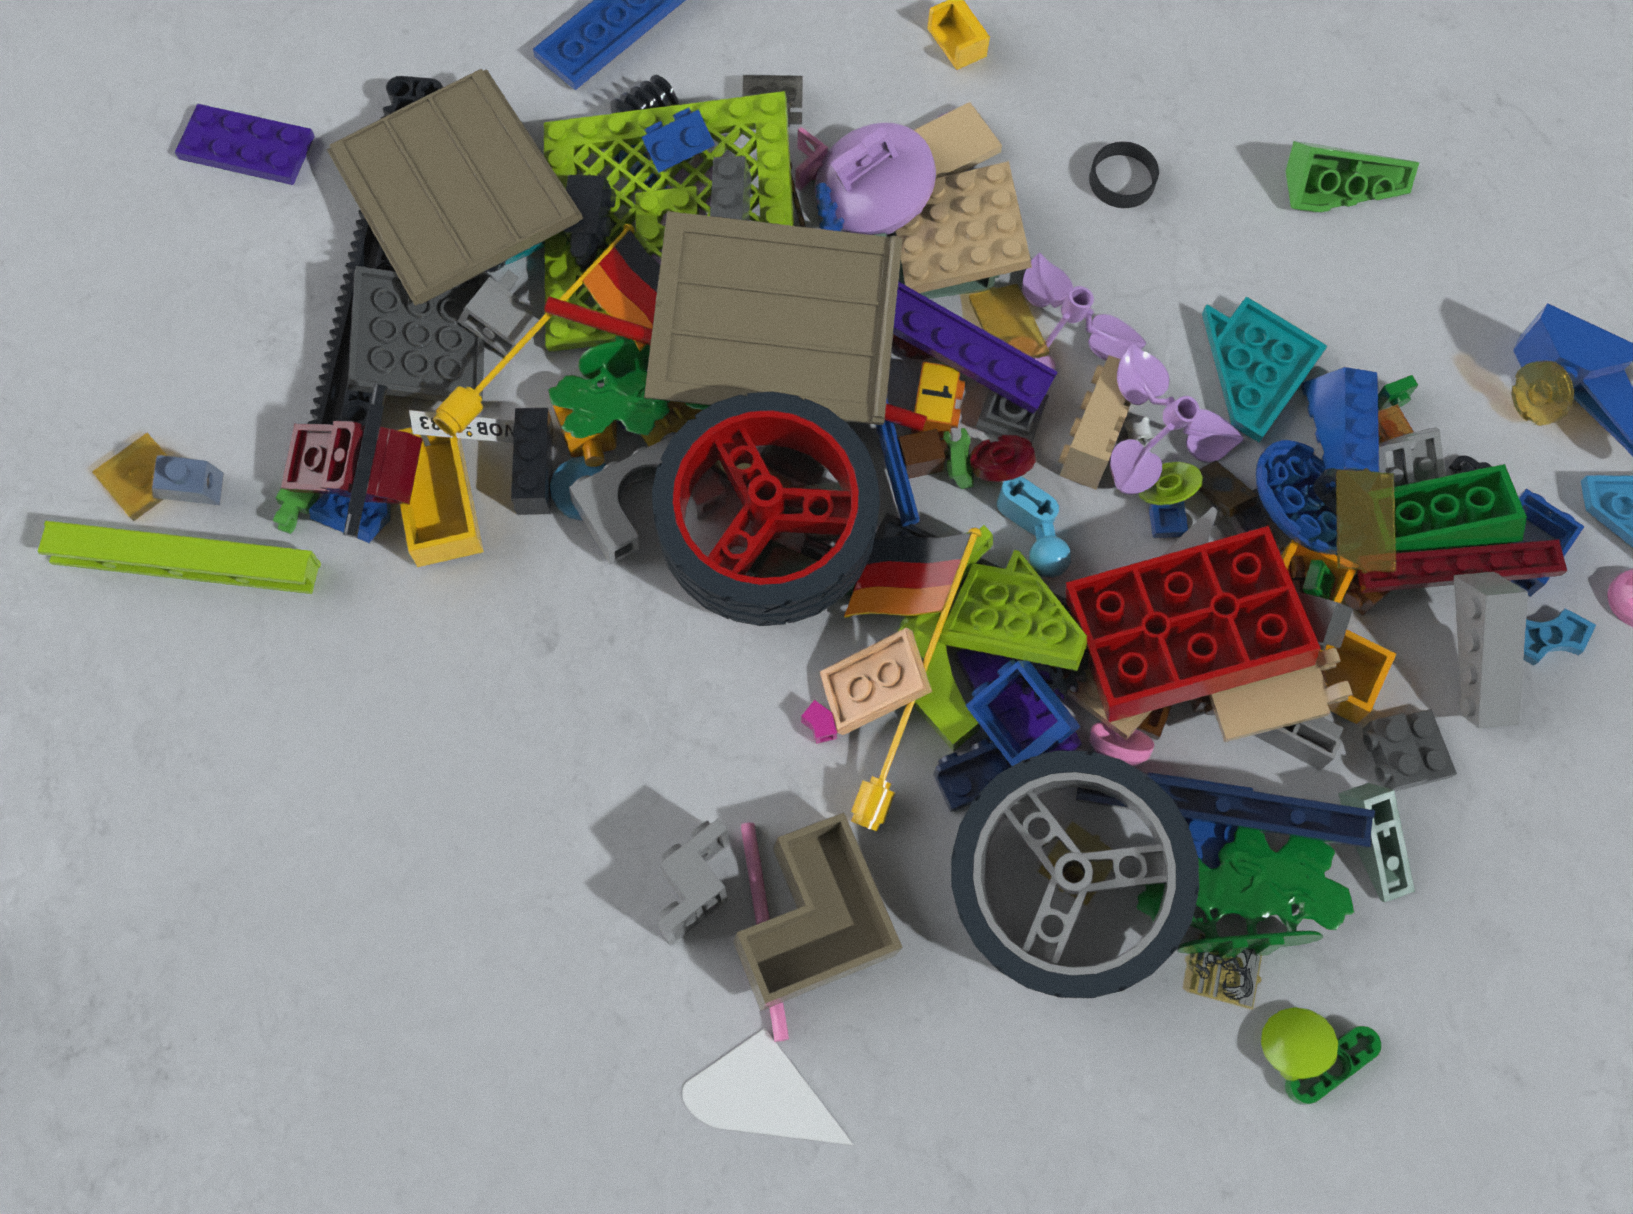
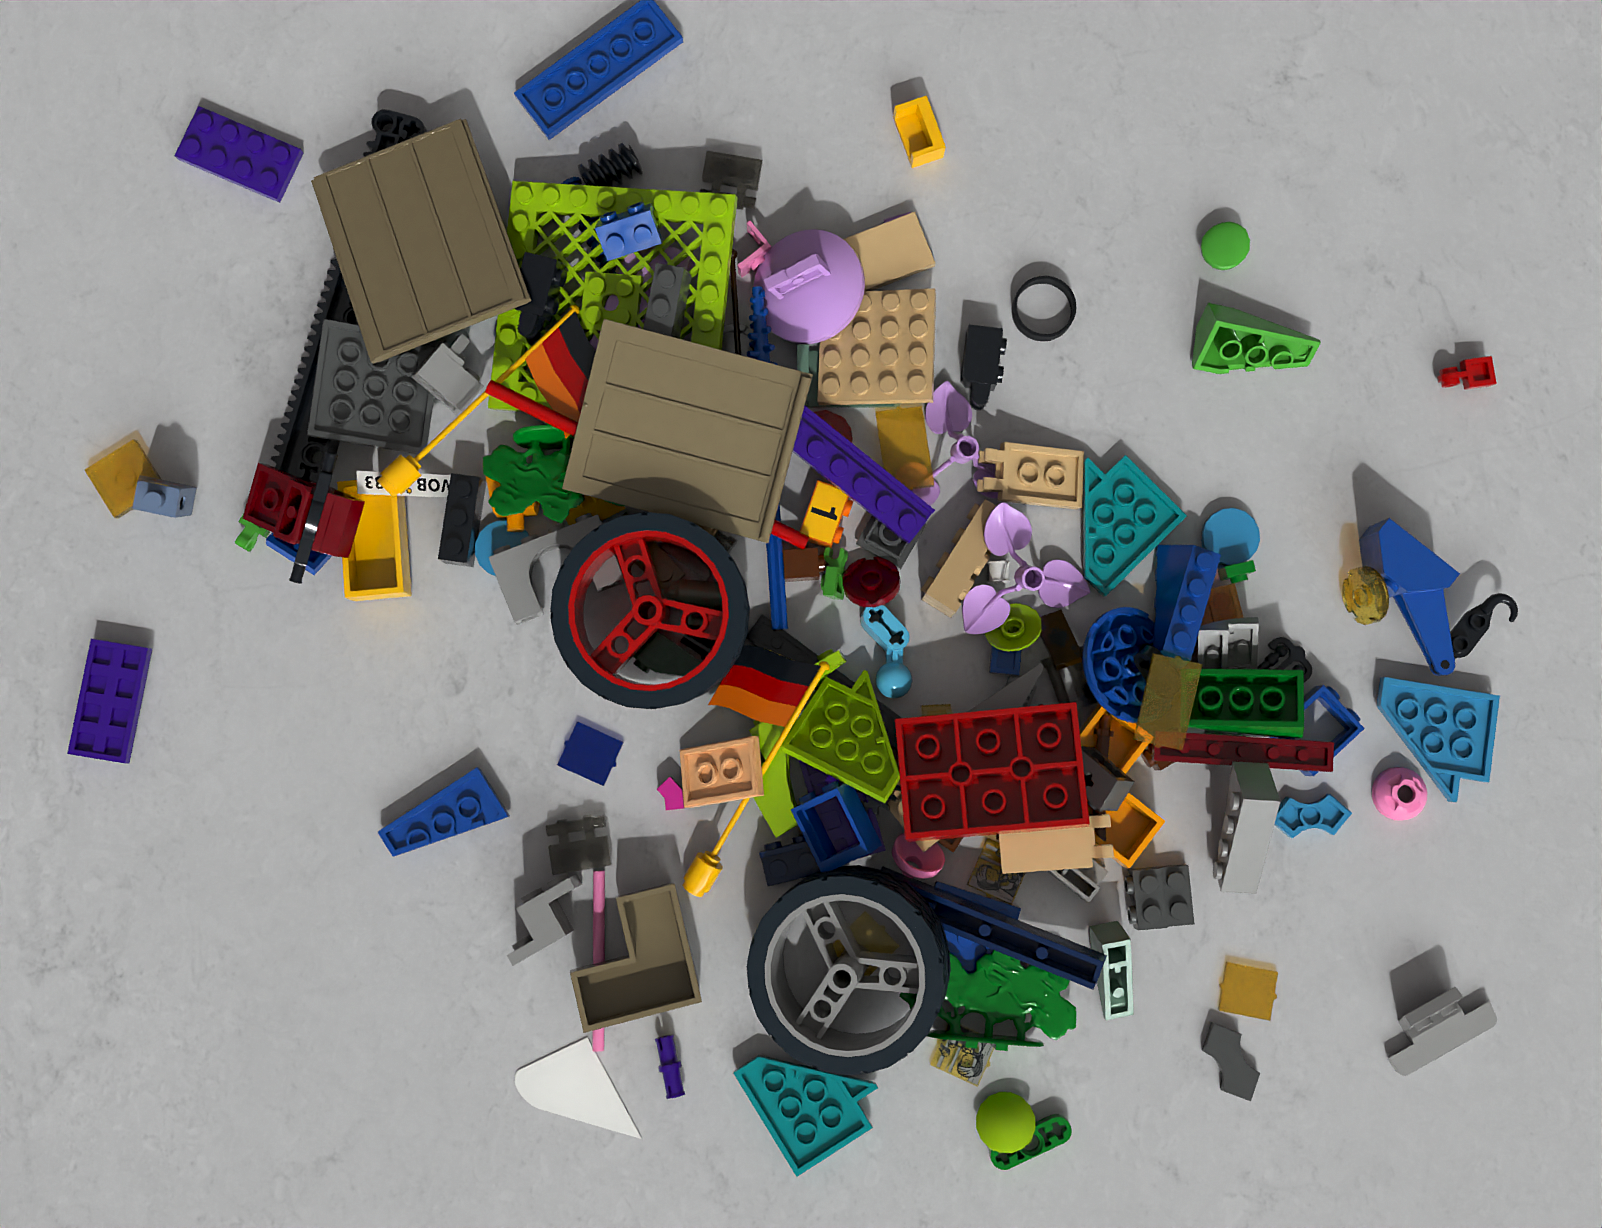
camera: 10 degrees right, 15 degrees up
(136, 718) = (109, 701): none -> dark purple plate
(179, 557) = (153, 563): lime tile -> none
(558, 783) = (452, 811): none -> blue wing
(716, 693) = (590, 753): none -> clear blue piece
(729, 803) = (579, 854): none -> clear smoke plate
(874, 1044) = (670, 1066): none -> dark purple pin
(1051, 1068) = (805, 1108): none -> teal wing
(1072, 231) = (981, 362): none -> black hinge
(1155, 325) = (1034, 475): none -> tan tile
(1210, 757) = (988, 875): none -> piece
(1294, 93) = (1225, 245): none -> bright green piece
(1319, 580) = (1118, 742): green tile -> none
(1381, 355) = (1232, 535): none -> dark azure tile
(1538, 843) = (1248, 991): none -> clear yellow piece
(1555, 943) = (1225, 1049): none -> dark grey tile
(1581, 172) = (1474, 373): none -> red plate

